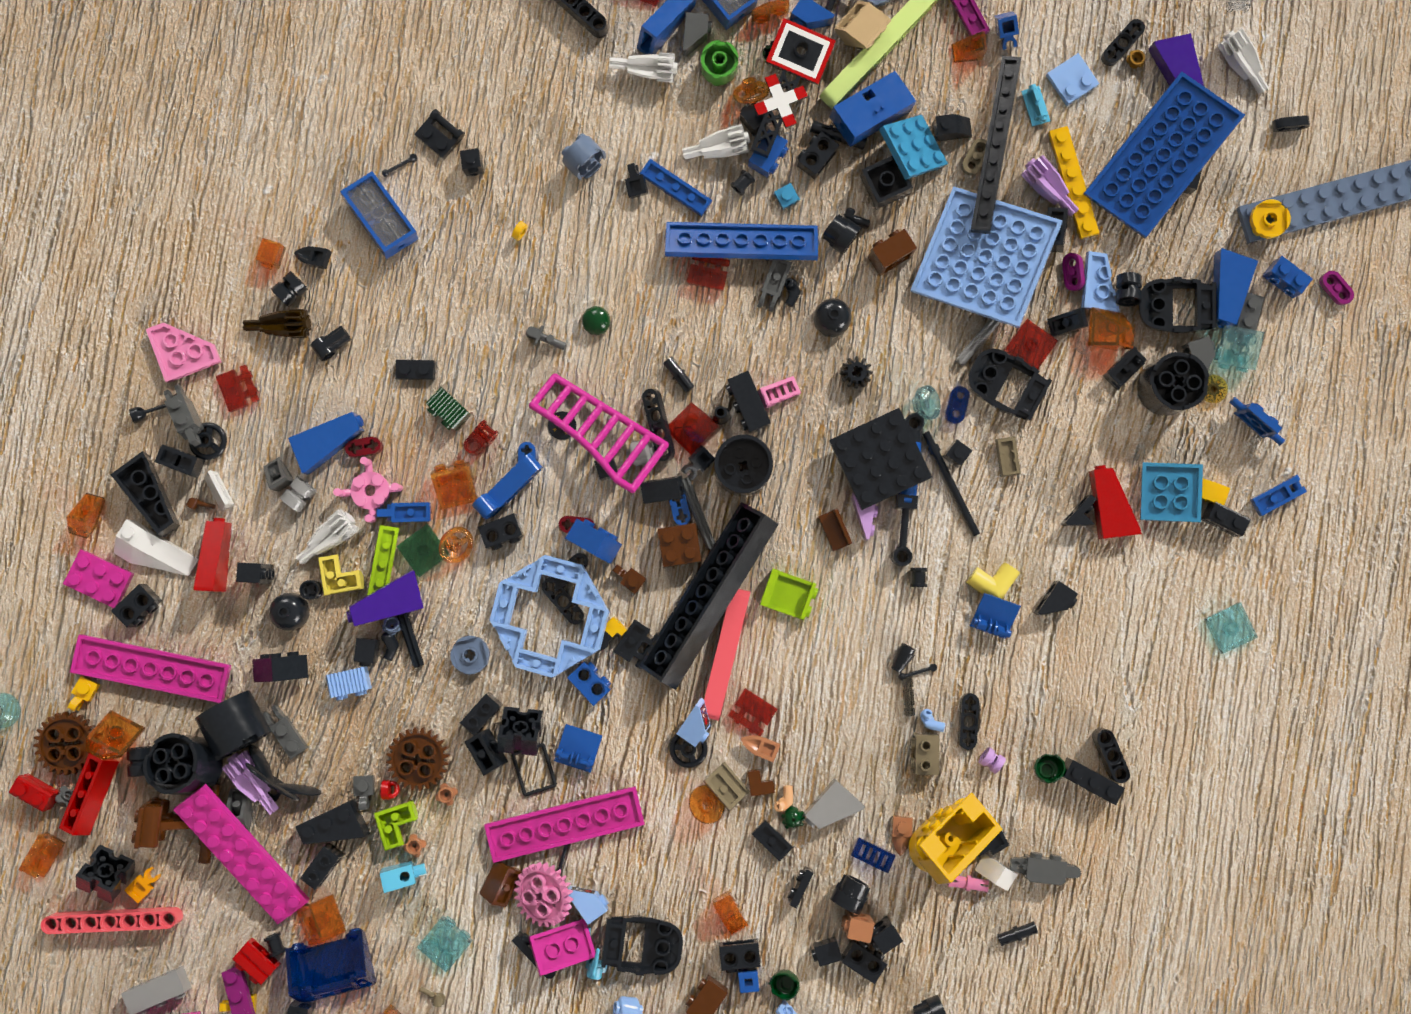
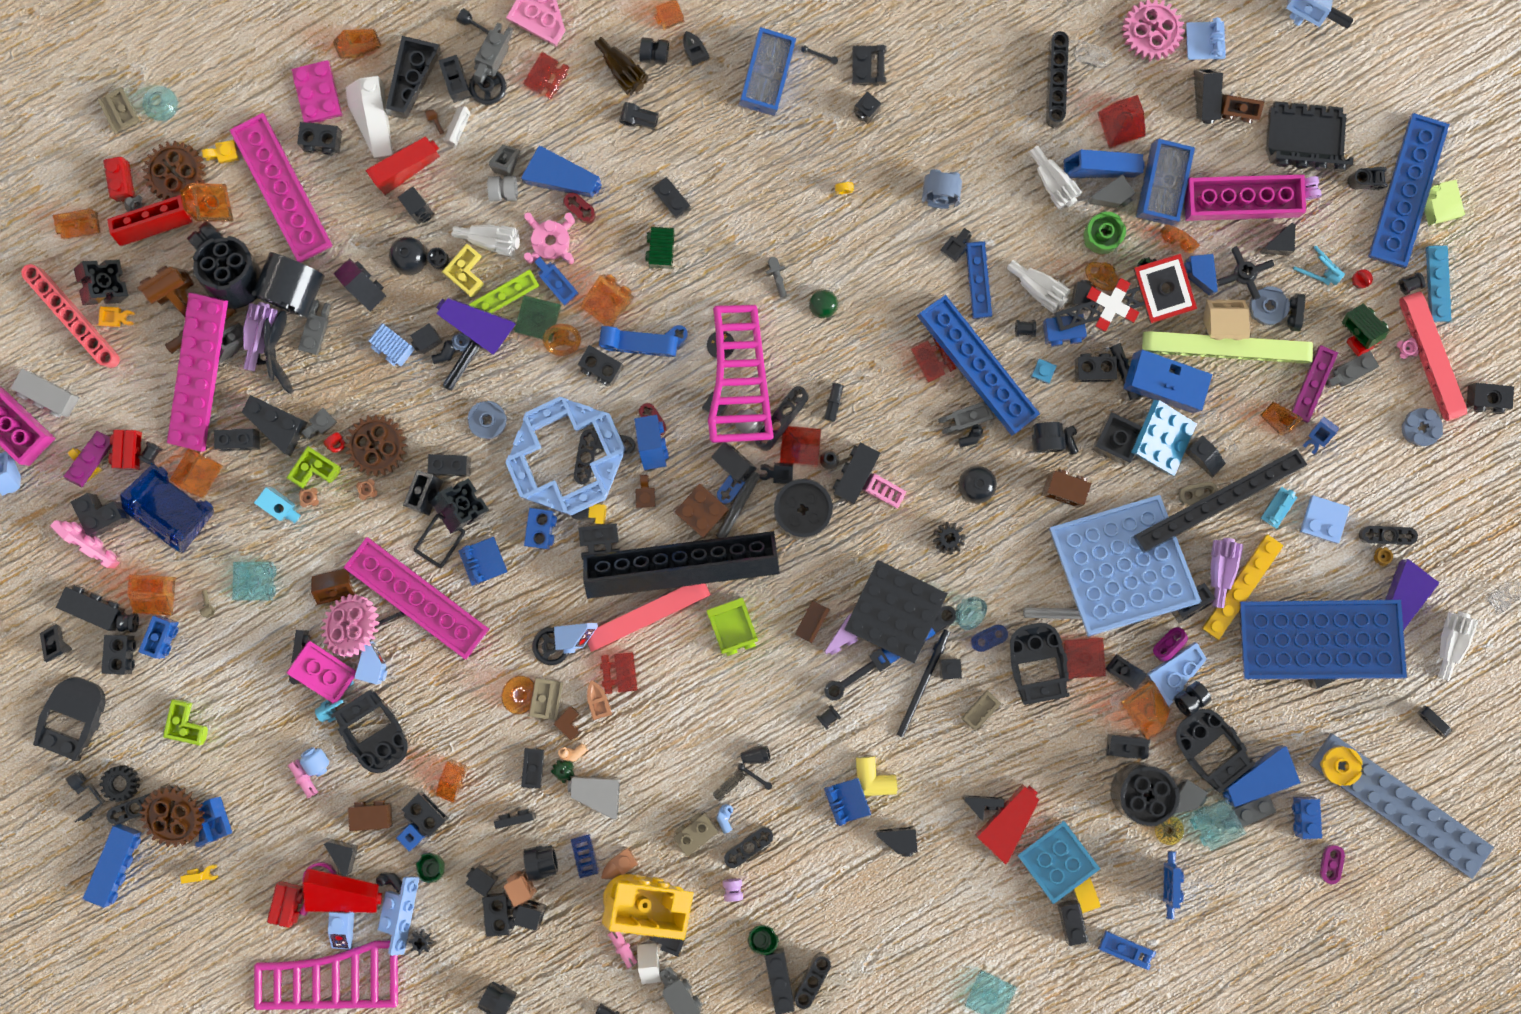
camera: 55 degrees right, 0 degrees up
(480, 437) = (660, 290): clear red piece -> none

